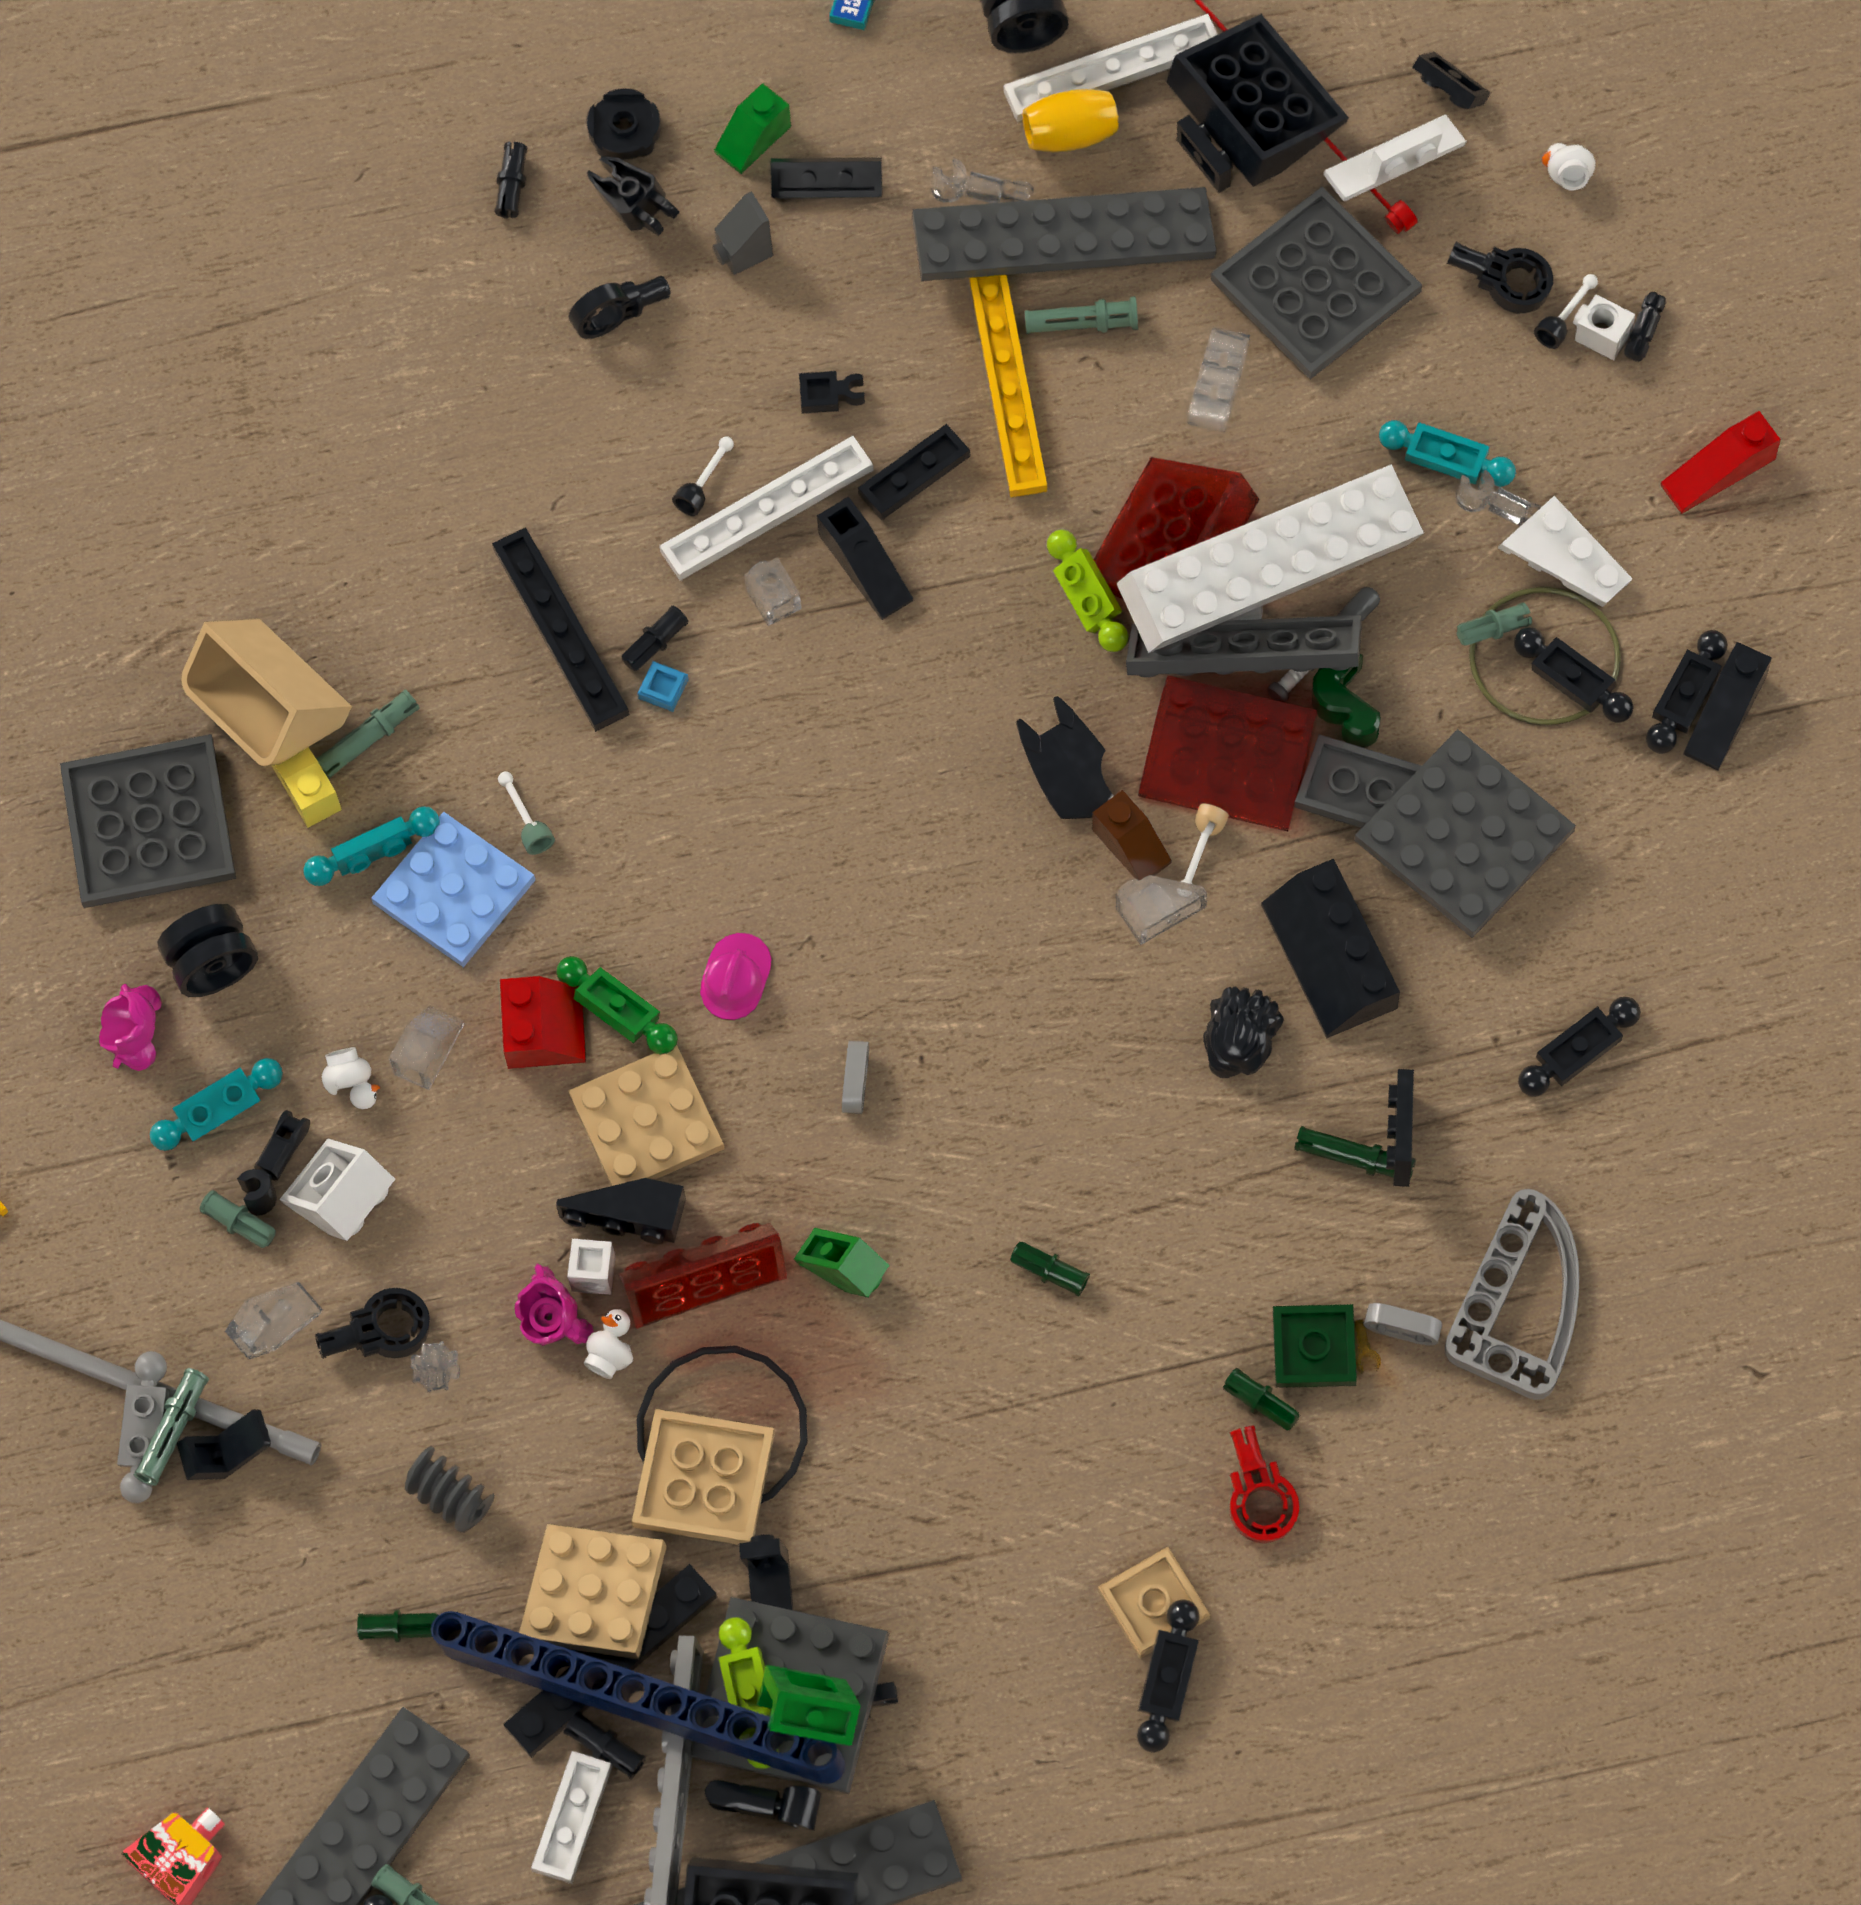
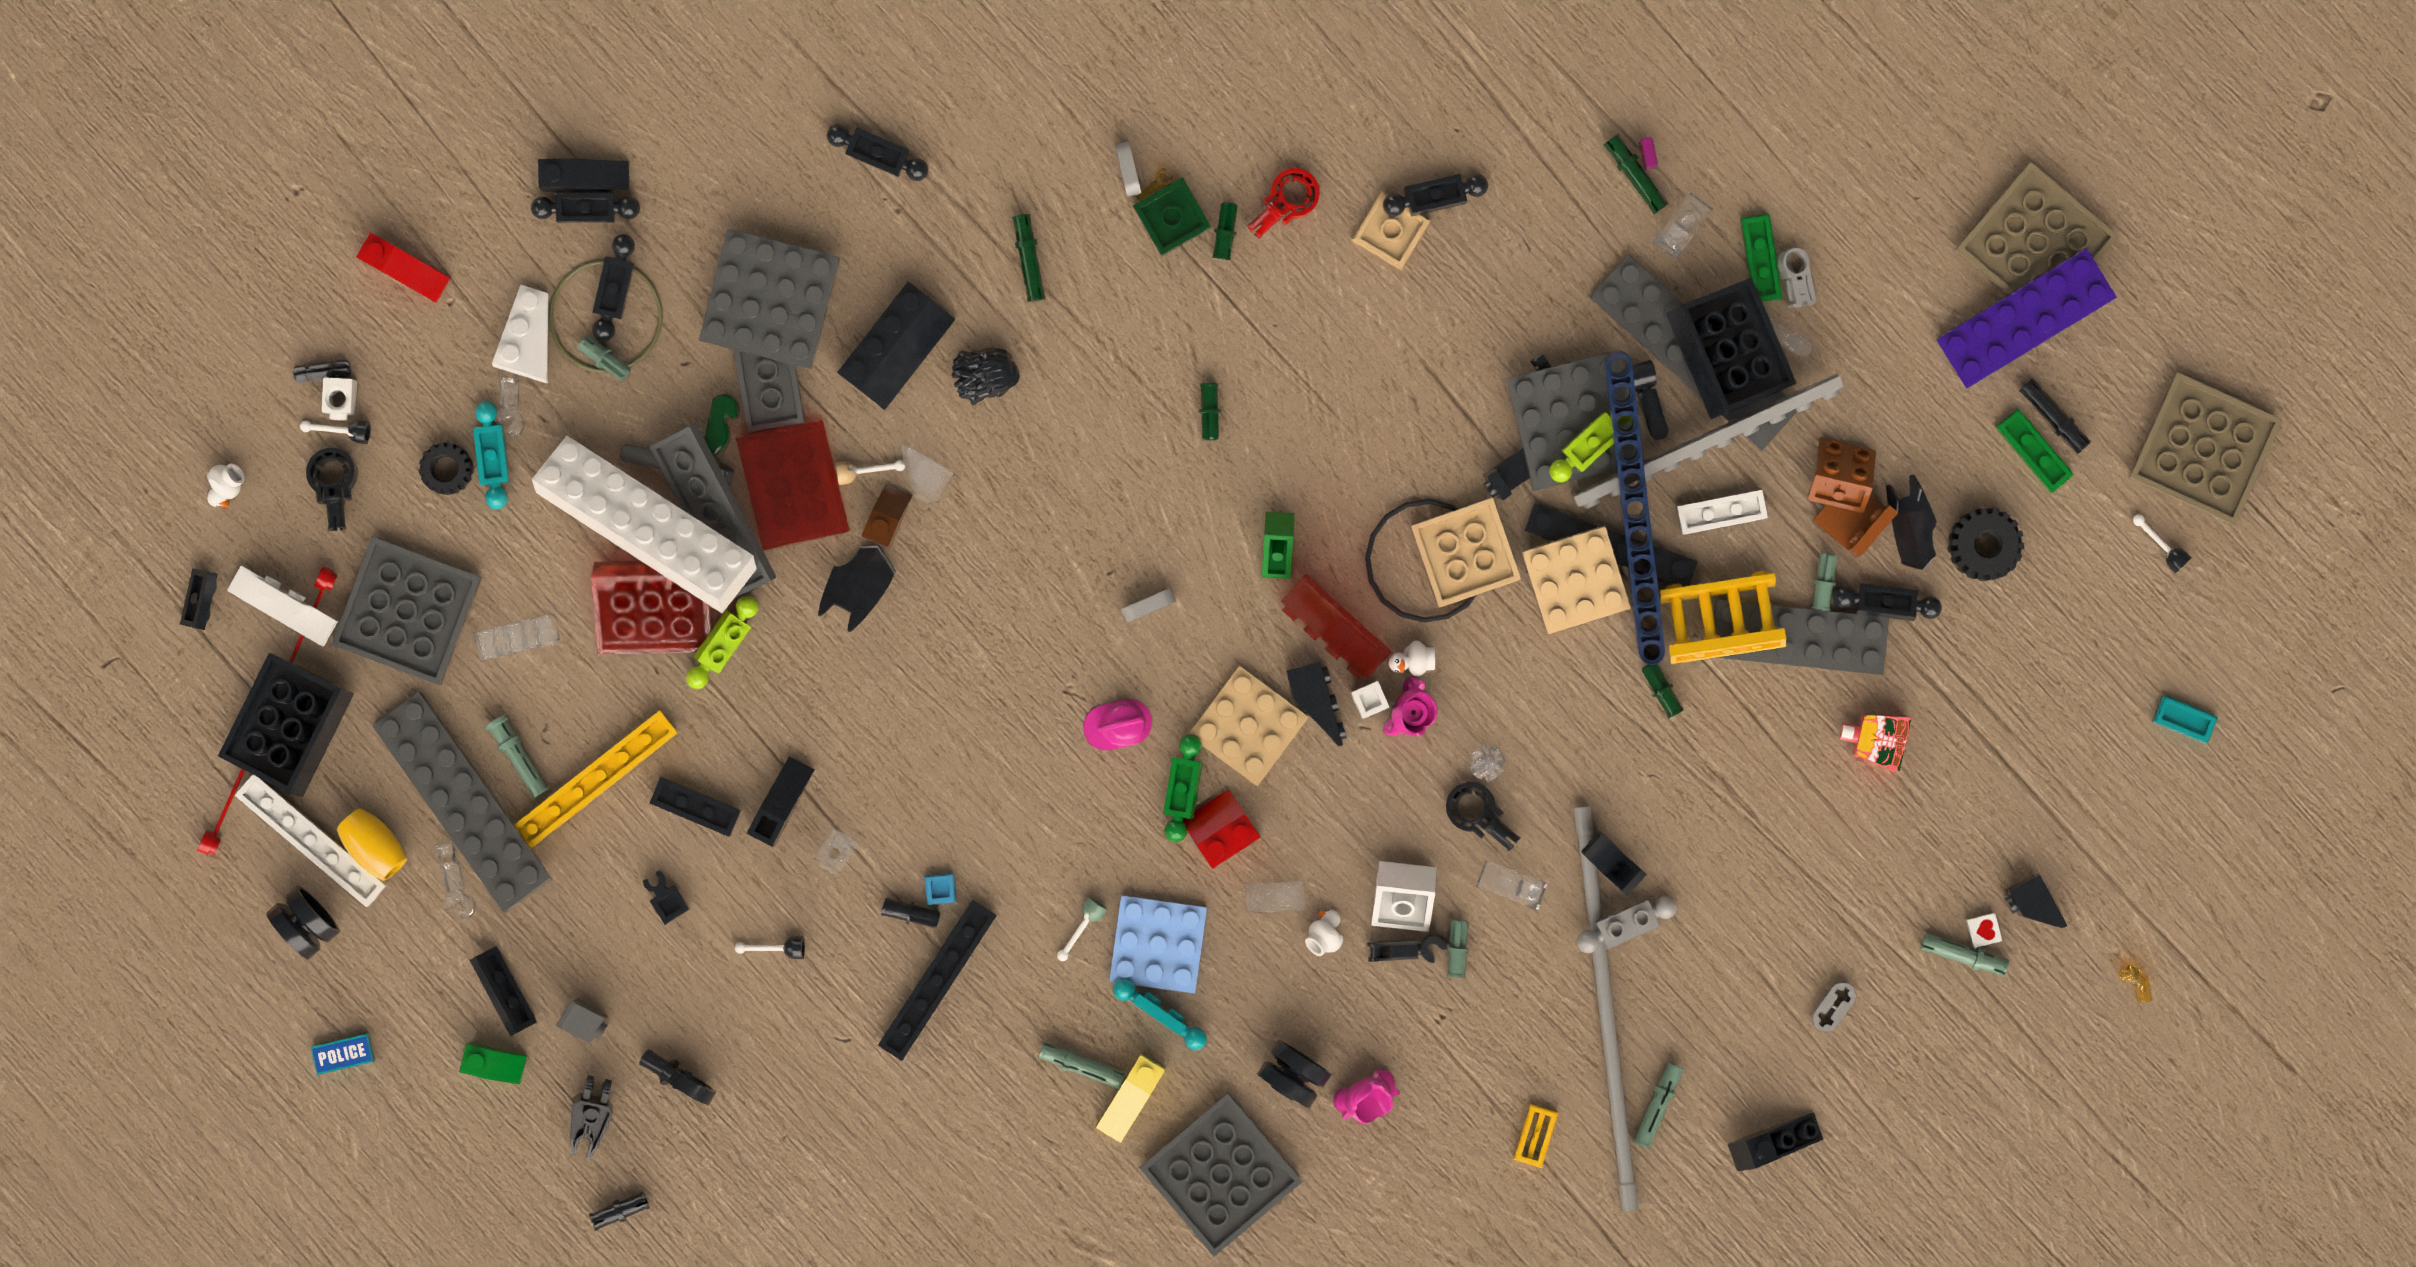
camera: 120 degrees left, 20 degrees up
(153, 1464) = (1619, 904): sand green pin -> none
(216, 1104) = (1389, 1009): teal plate -> none
(260, 690) = (1095, 1148): tan windscreen -> none
(401, 1745) = (1741, 640): none -> yellow fence
(446, 1492) = (1562, 708): dark grey piece -> none
(604, 1745) = (1666, 518): black pin -> none
(627, 143) = (531, 1173): black plate -> none
(766, 508) = (775, 891): white plate -> none
(809, 1705) = (1589, 389): green window -> none
(1199, 146) = (351, 728): black plate -> none
(1400, 1127) = (999, 234): black plate -> none
(1458, 379) = (463, 474): none -> black tyre
(1495, 1297) = (1077, 120): light grey beam -> none

